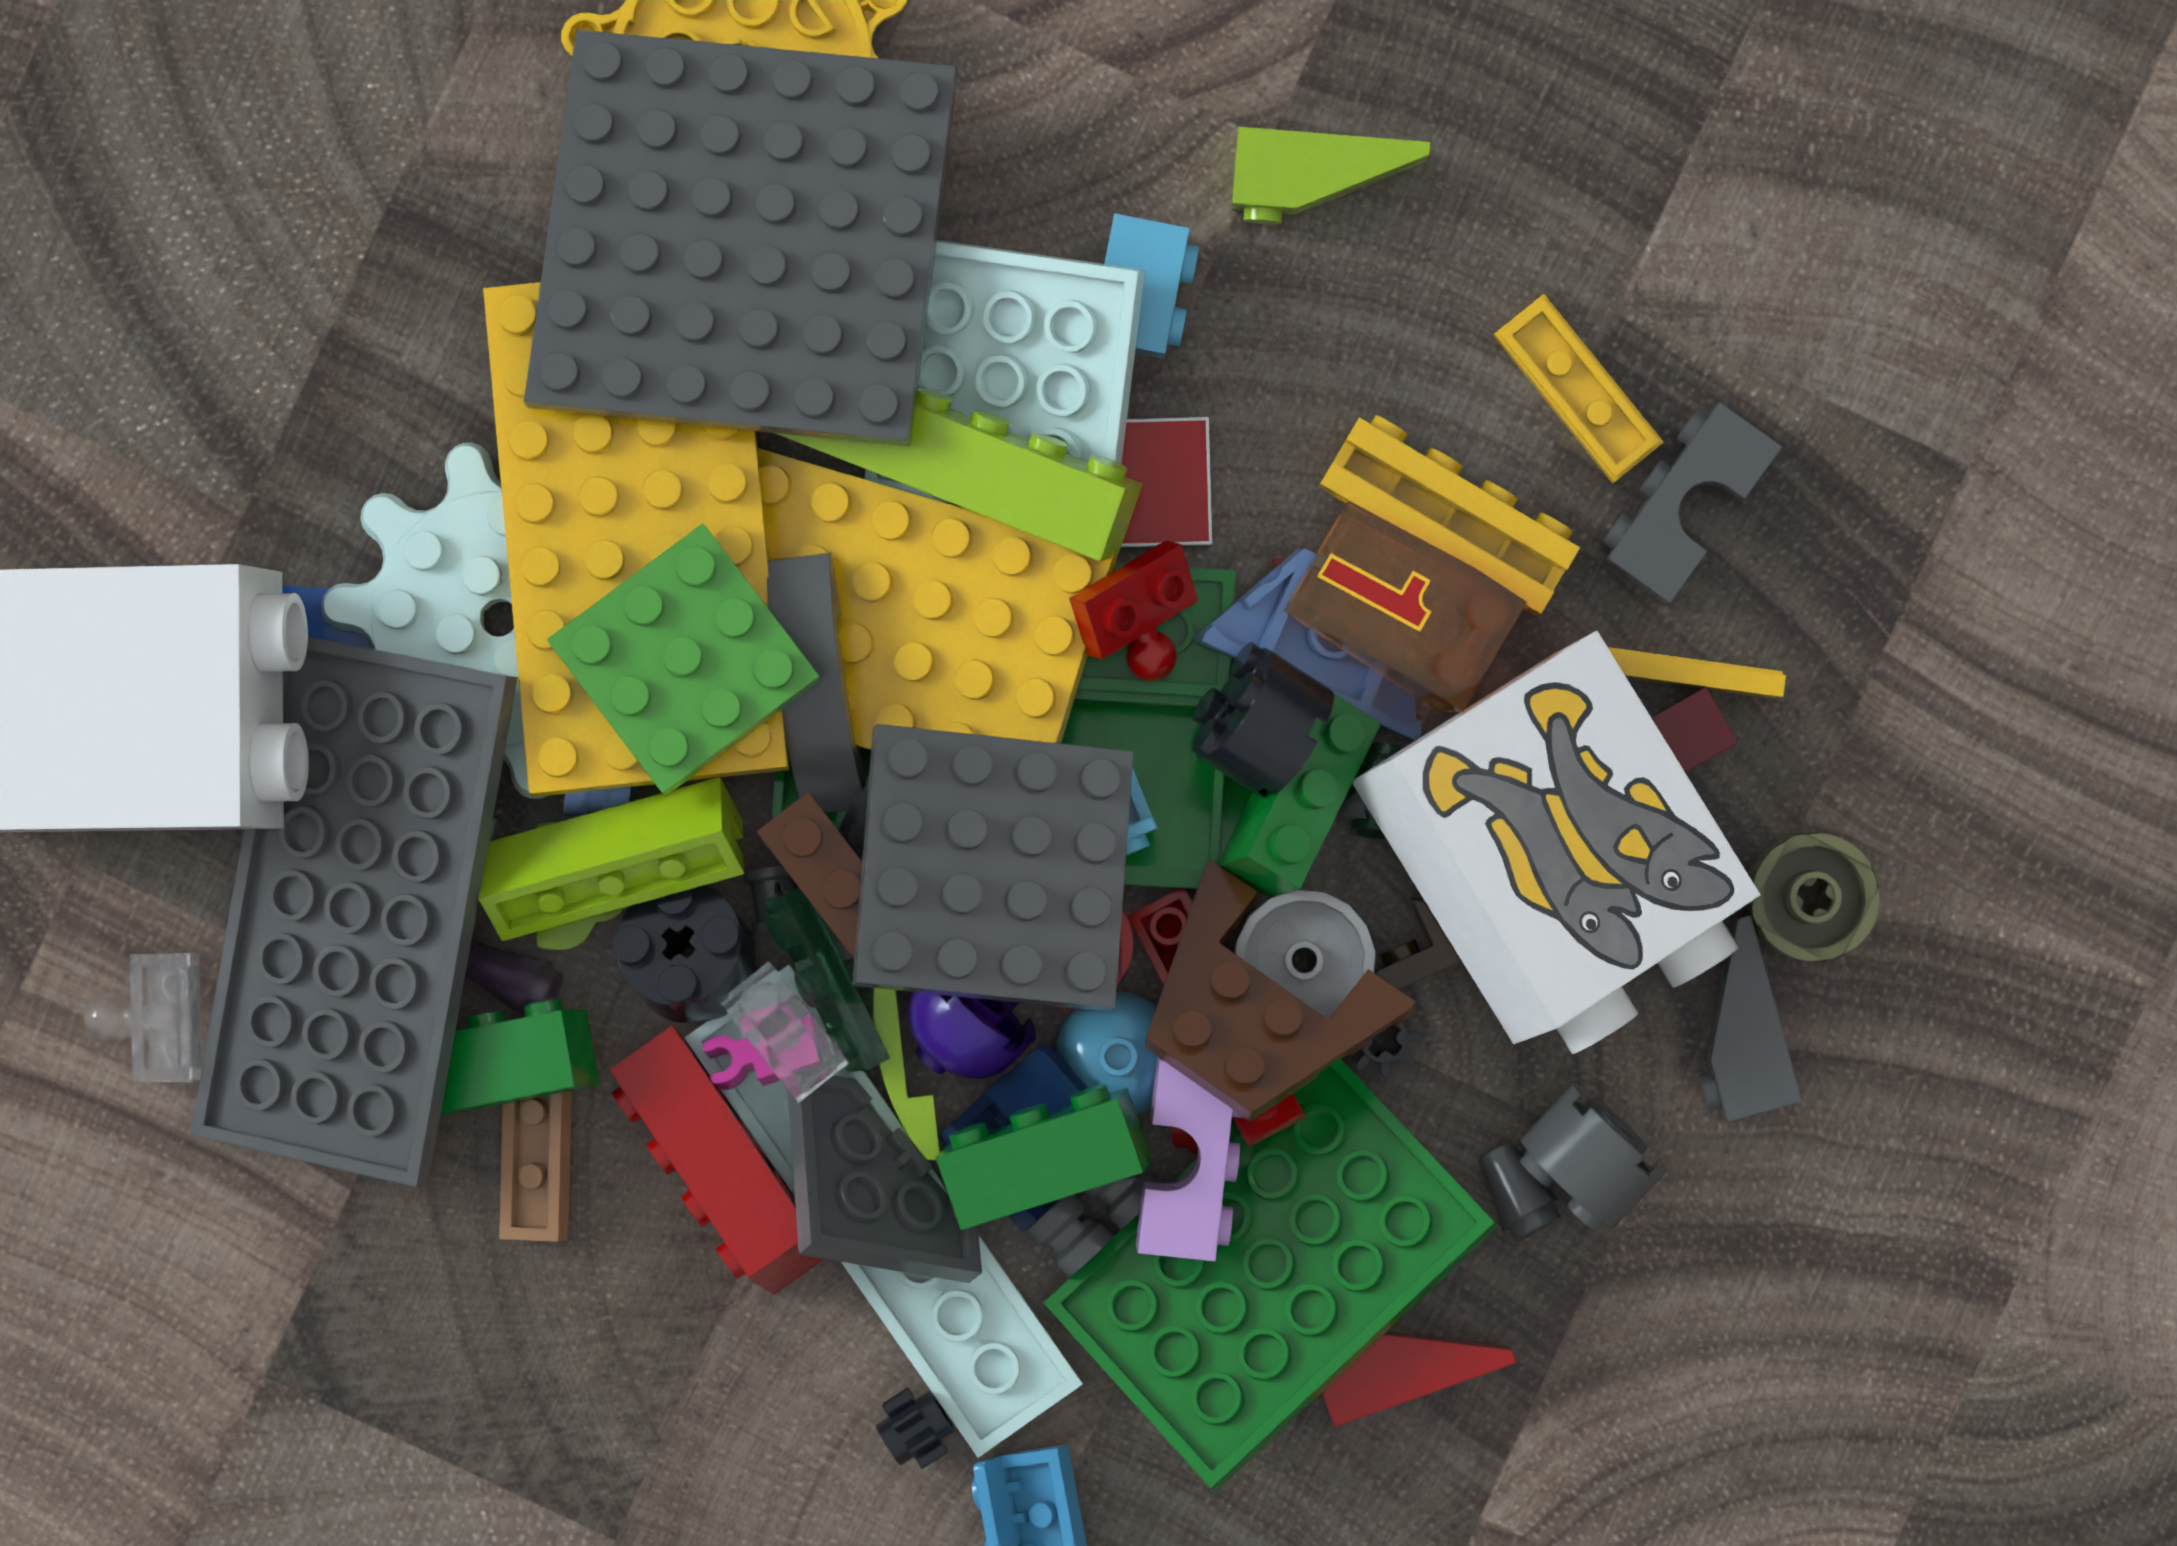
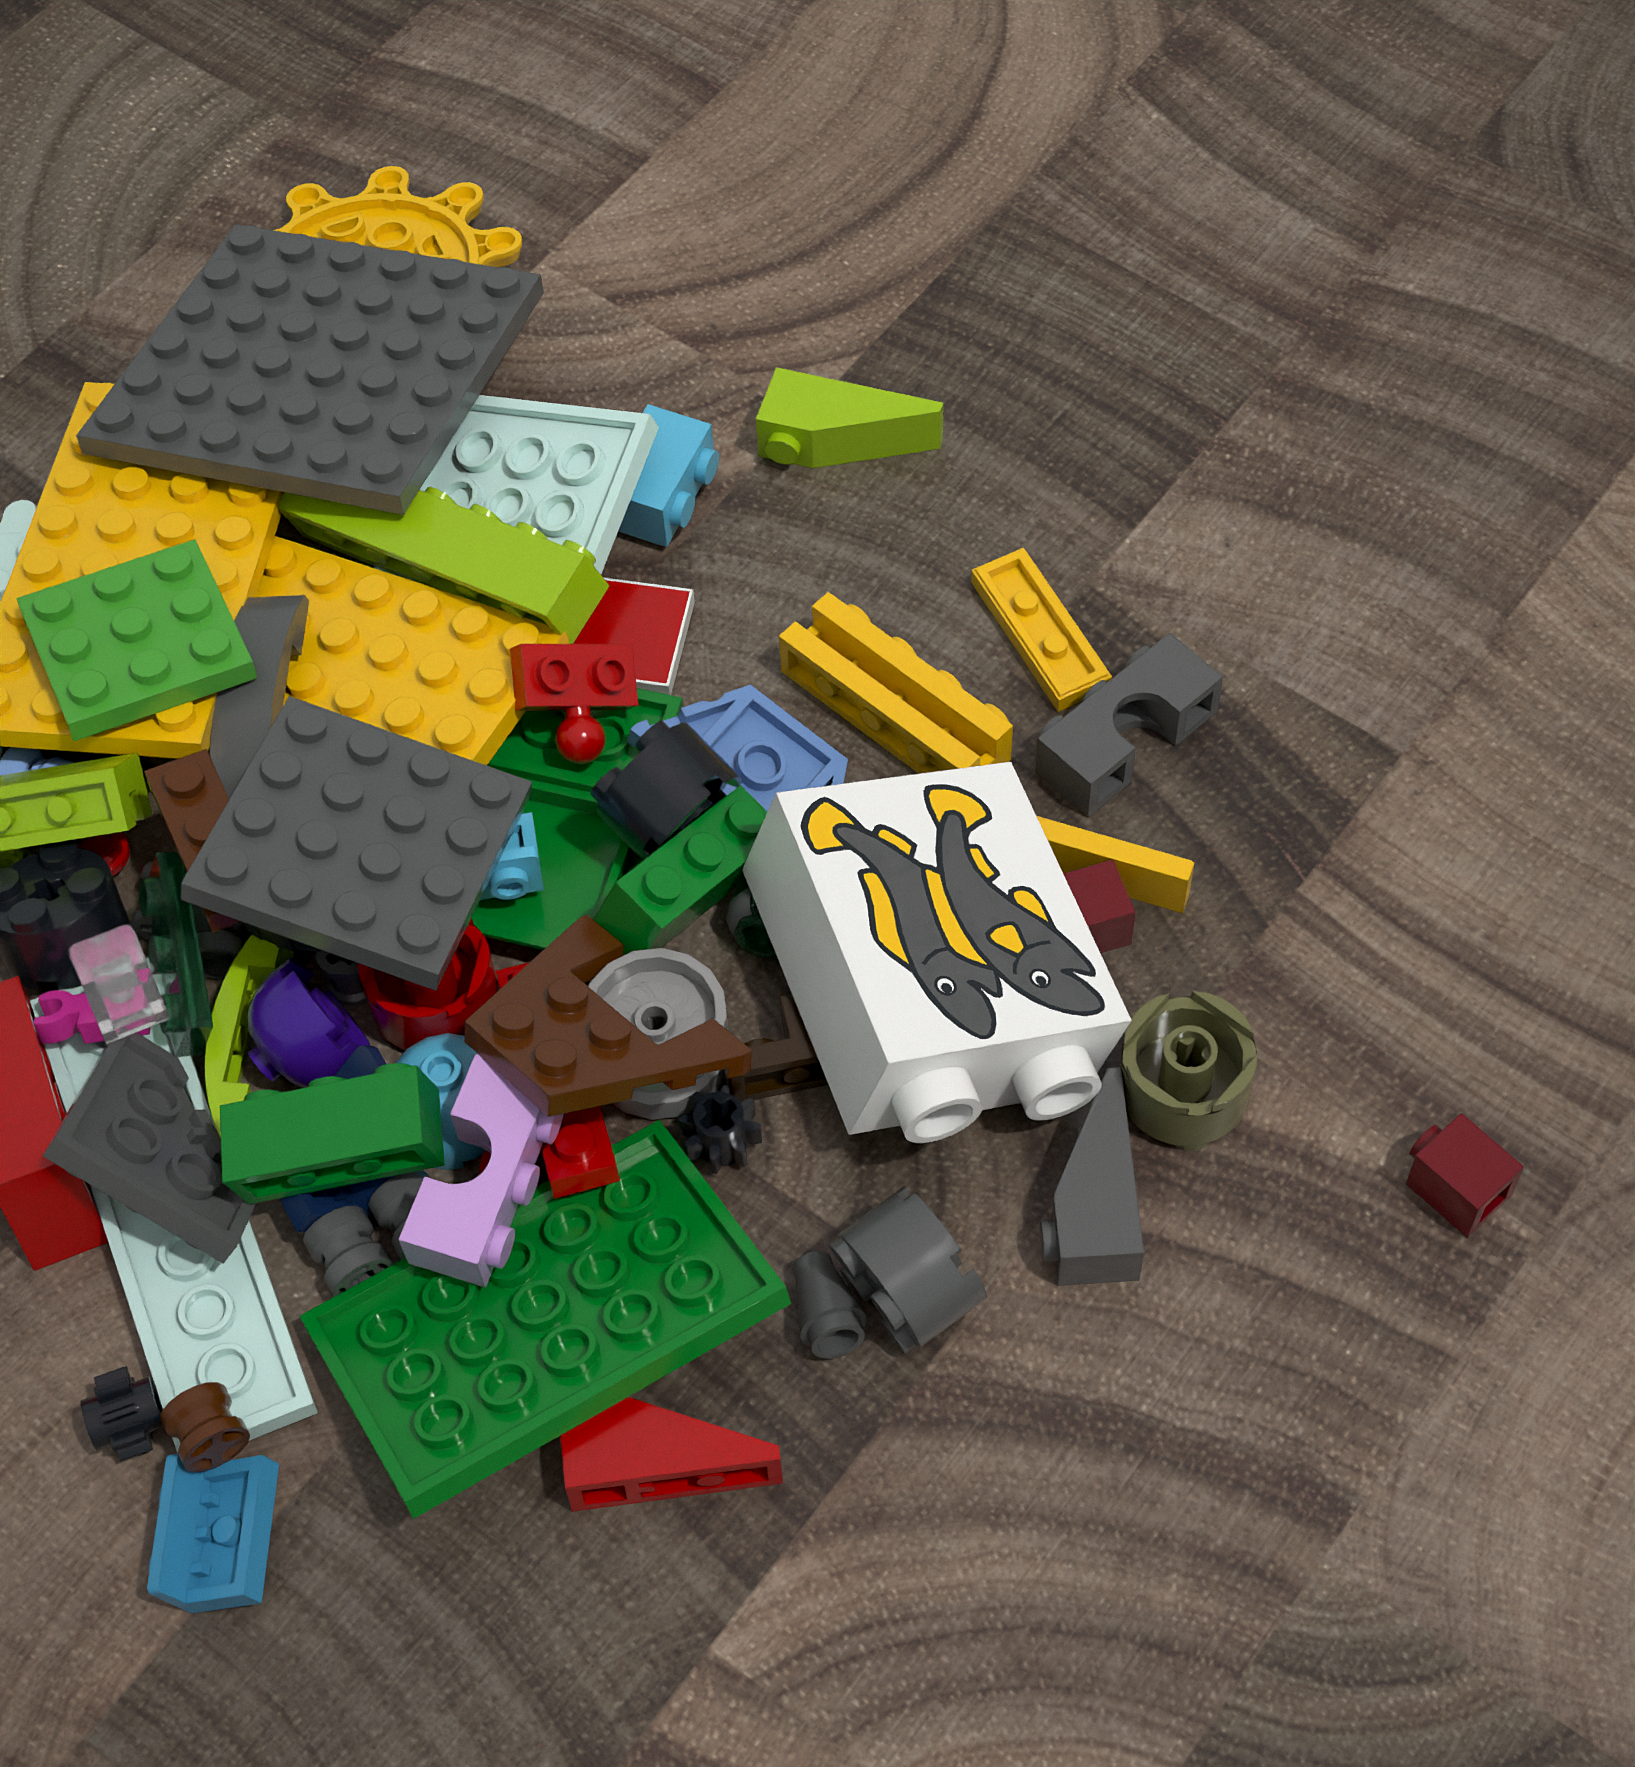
camera: 15 degrees right, 30 degrees down
(1003, 1439) = (205, 1426): none -> reddish brown wheel
(1405, 608) = (828, 730): clear orange slope -> none
(2078, 947) = (1462, 1173): none -> dark red brick

